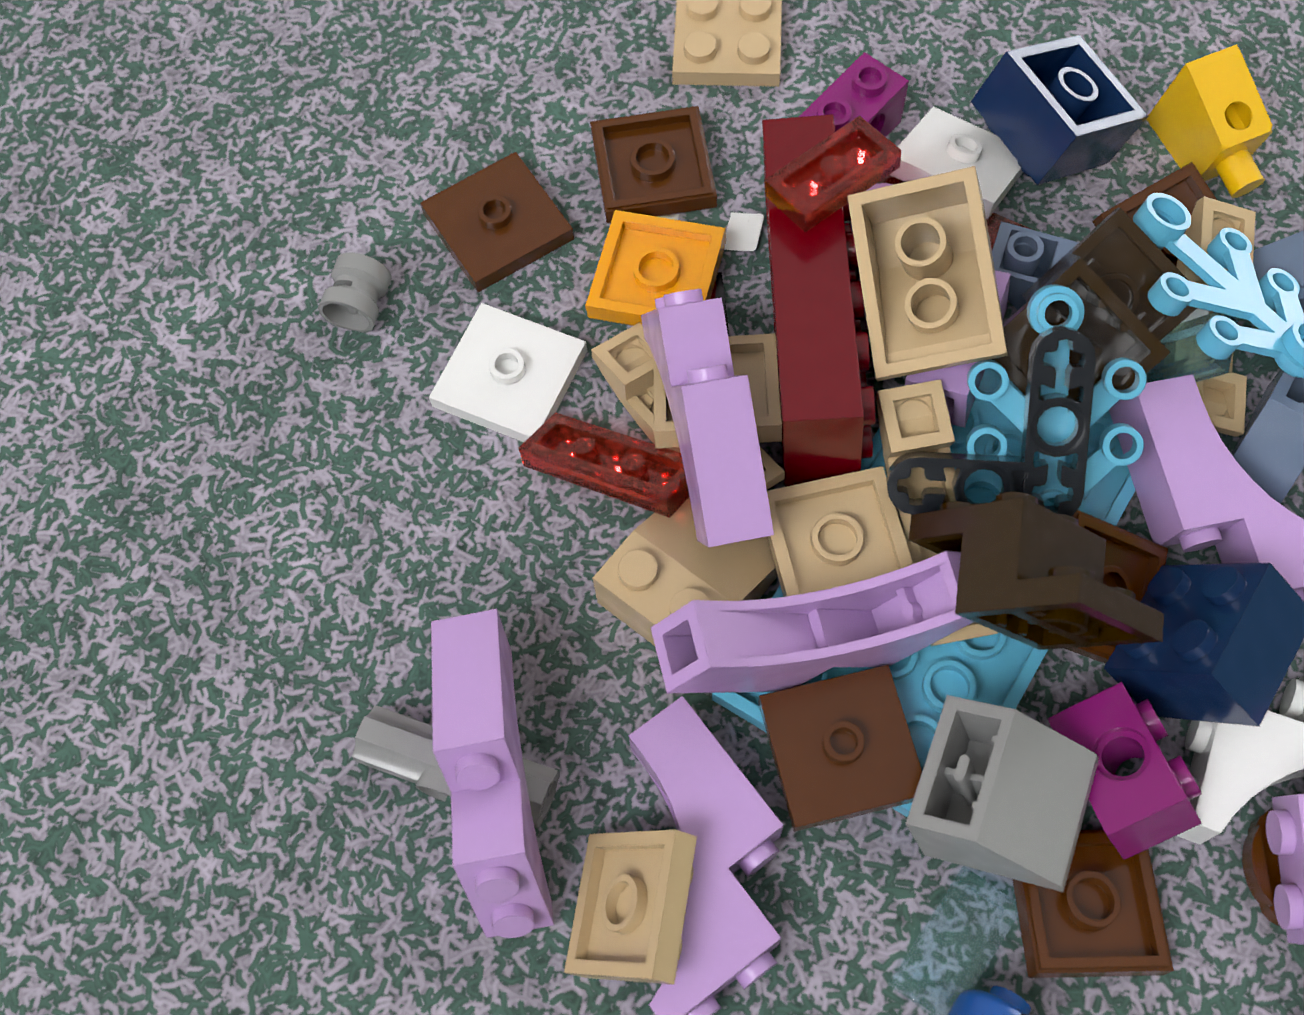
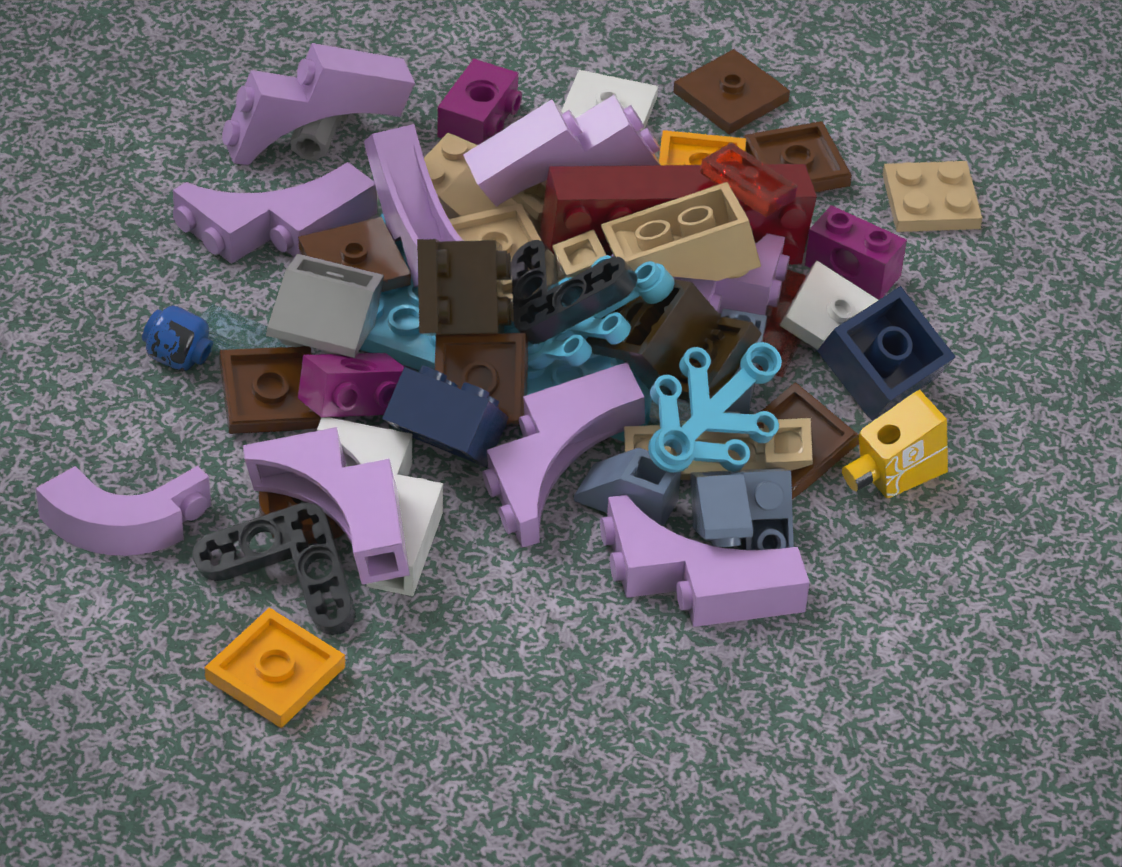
camera: 75 degrees right, 20 degrees down
(356, 288) = (651, 25): light grey wheel -> none
(510, 566) = (479, 102): none -> magenta brick
(632, 906) = (228, 174): tan plate -> none

